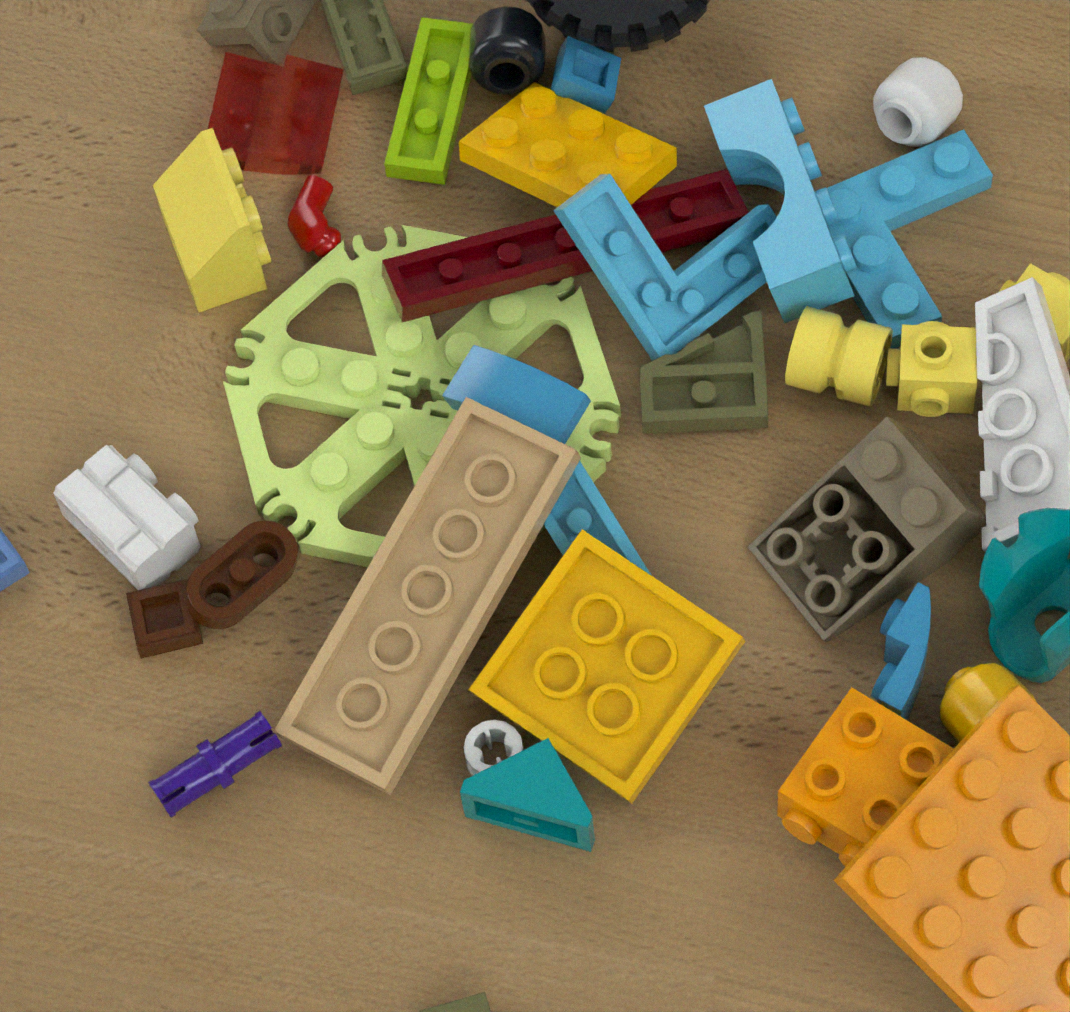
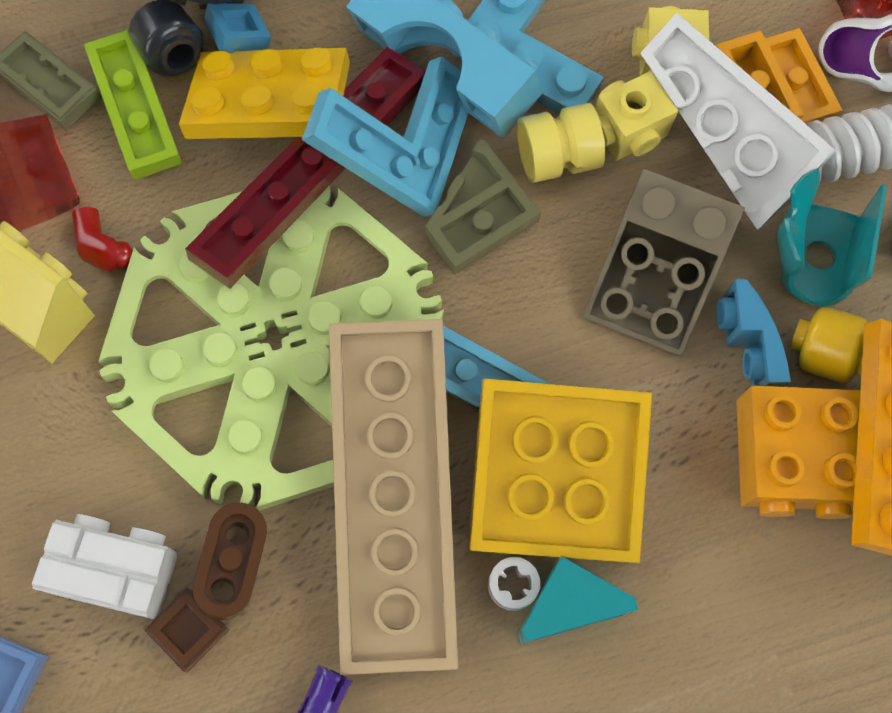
camera: 45 degrees left, 10 degrees up
(518, 393) = (357, 298): dark azure slope -> none

